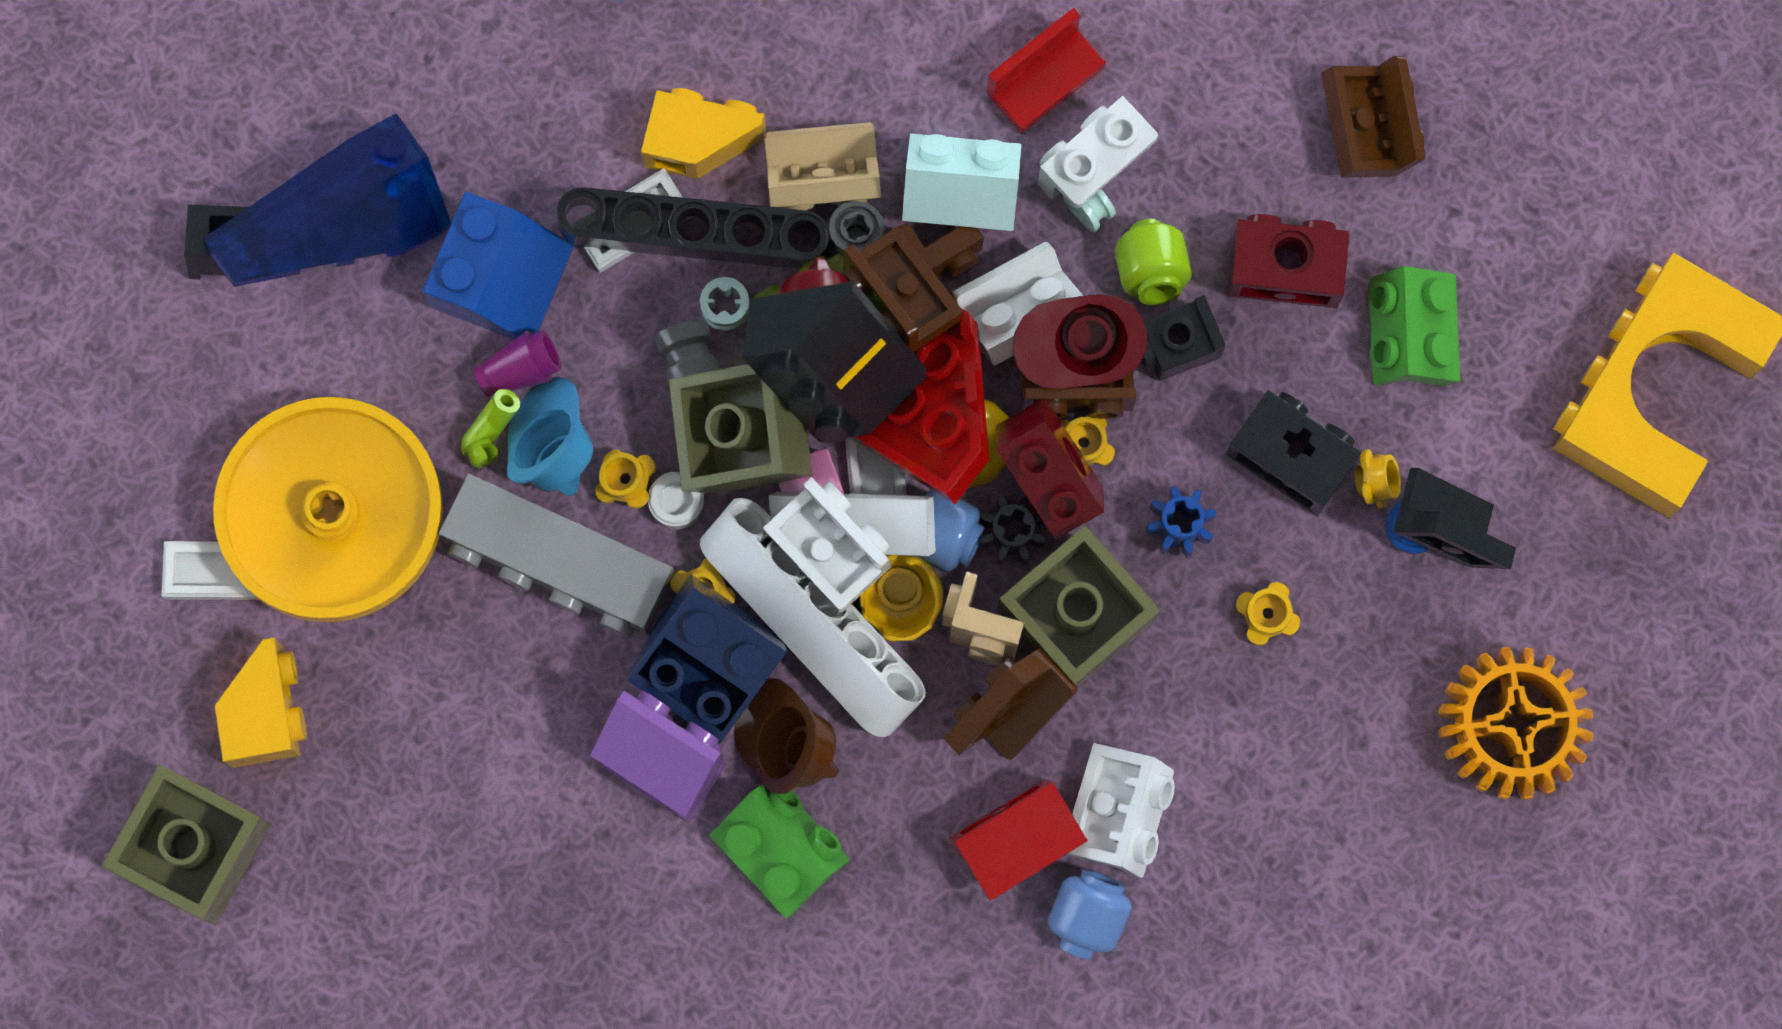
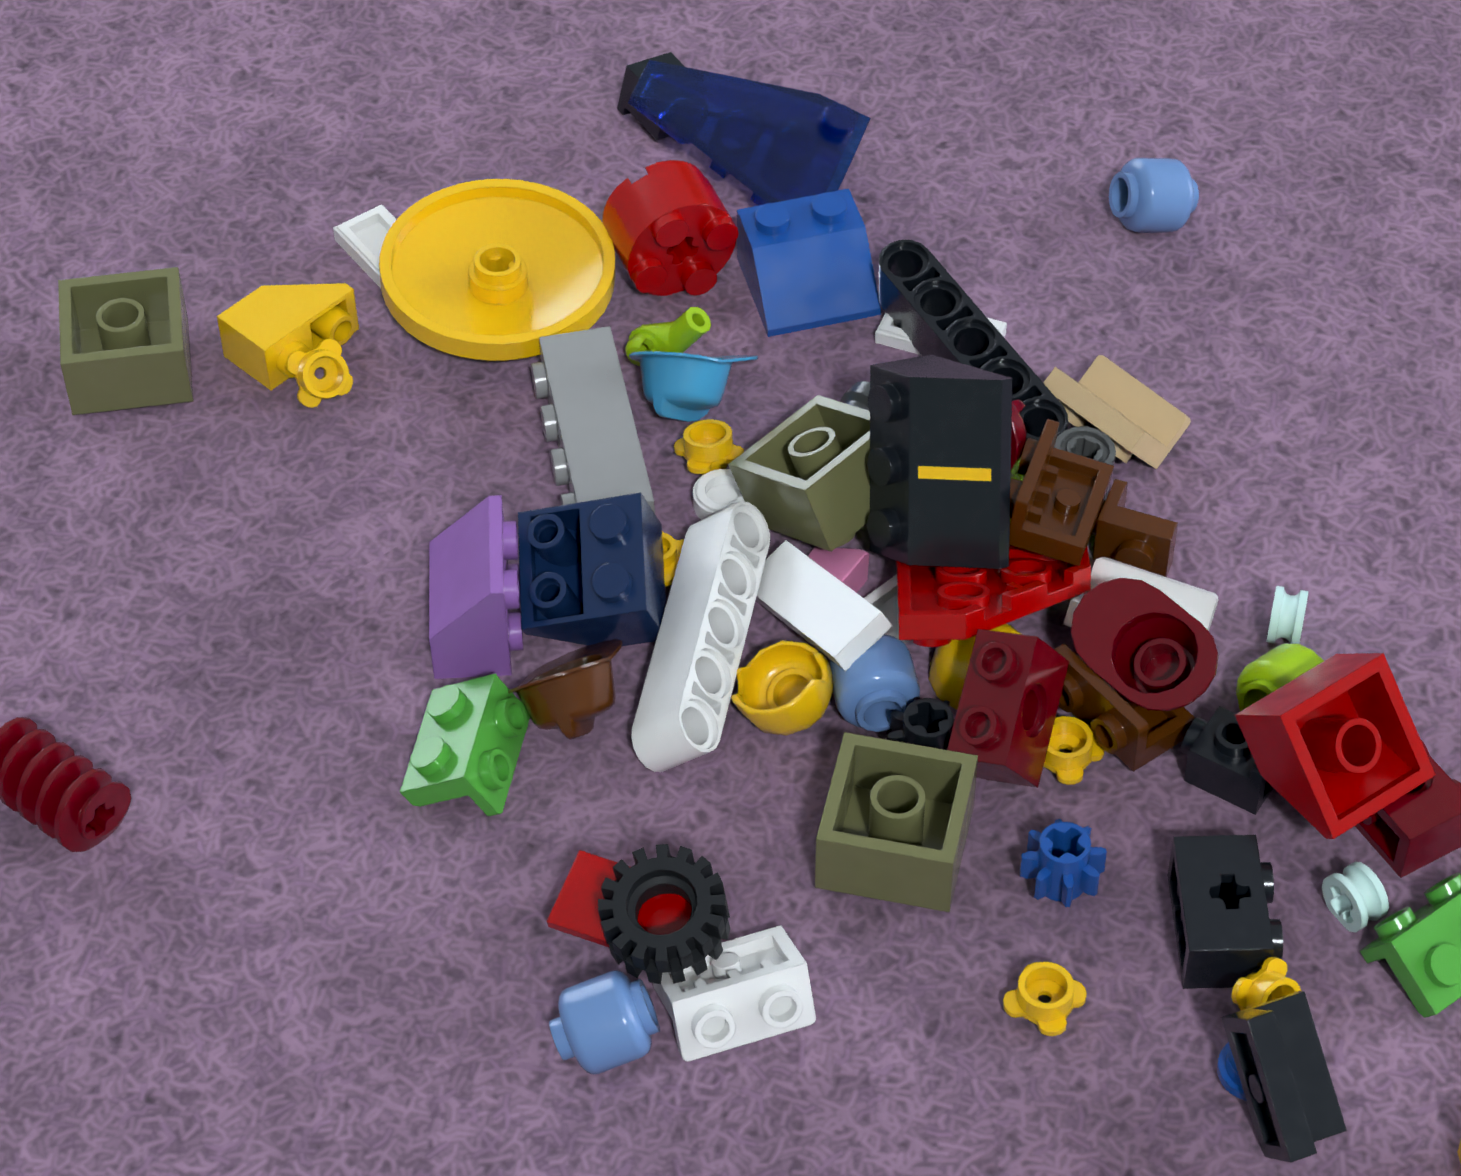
camera: 55 degrees right, 30 degrees down
(326, 713) = (336, 373): none -> yellow plate
(398, 354) = (670, 229): none -> red brick
(520, 364) = (745, 324): magenta cone -> none
(698, 135) = (1054, 318): yellow slope -> none
(829, 544) = (775, 584): white bracket -> none
(961, 182) = (1207, 488): light aqua slope -> none
(985, 633) = (809, 742): tan bracket -> none
(1015, 706) = (752, 812): reddish brown bracket -> none
(1044, 72) = (1371, 509): red panel -> none
(1094, 835) = (653, 878): none -> black tyre
(1097, 154) = (1337, 577): white bracket -> none
(1250, 284) = (1337, 742): none -> red slope
(1342, 356) = (1355, 896): none -> light aqua bush

